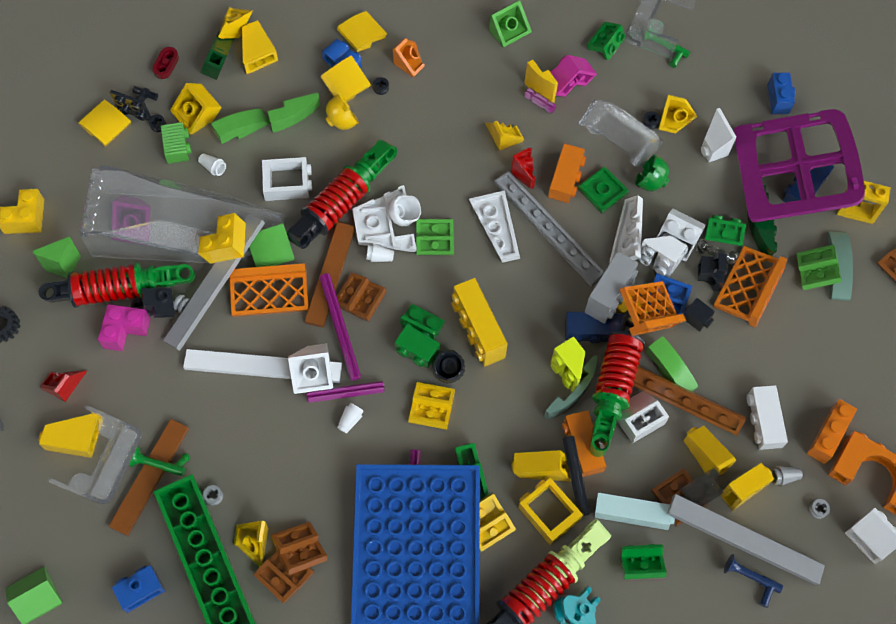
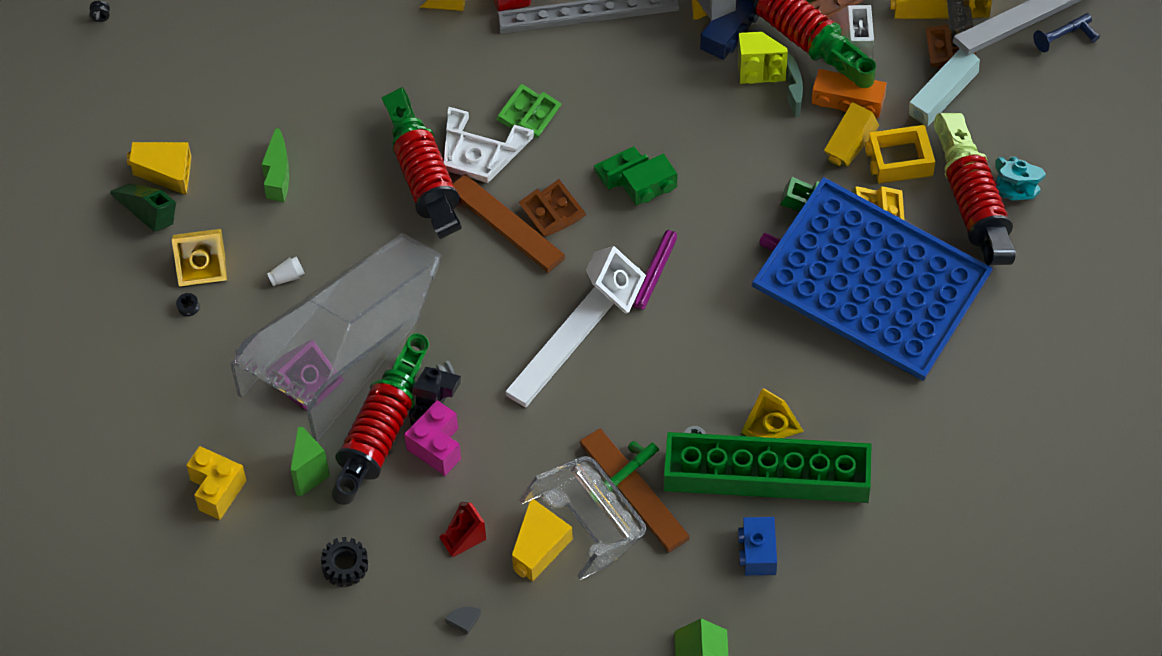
camera: 55 degrees left, 10 degrees down
(105, 122) = (147, 354): yellow slope -> none
(134, 106) = (150, 309): black plate -> none
(165, 64) = (114, 262): dark red plate -> none
(175, 142) = (231, 294): bright green brick -> none
(208, 290) = (446, 324): light grey tile -> none
(227, 242) = (417, 278): yellow brick -> none
(233, 23) = (111, 167): yellow slope -> none
(239, 124) = (255, 224): bright green slope -> none
(265, 274) = (470, 272): orange fence -> none
(271, 247) = (438, 257): bright green slope -> none
(277, 581) = (822, 409): dark orange slope -> none
(289, 192) = (354, 229): white window -> none
(299, 548) = (805, 382): dark orange slope -> none
(337, 52) = (242, 92): blue brick -> none
(340, 114) = (316, 121): yellow cylinder -> none
(340, 327) = (575, 237): magenta axle -> none
(346, 79) = (276, 99): yellow slope -> none
(350, 417) = (688, 276): white cone -> none
(361, 31) = (218, 59): yellow slope -> none
(379, 254) = (513, 168): white cone -> none
(381, 91) = (303, 80): black bush -> none
(404, 209) = (481, 118): white hair -> none
(407, 57) = (289, 35): orange slope -> none
(431, 405) = (721, 202): yellow slope -> none
(448, 366) = (691, 163): black hair -> none
(479, 322) = (661, 111): yellow brick -> none
(497, 223) = (553, 49): white wing -> none
(576, 475) = (879, 111): black axle -> none
(643, 561) = (998, 105): green bracket -> none

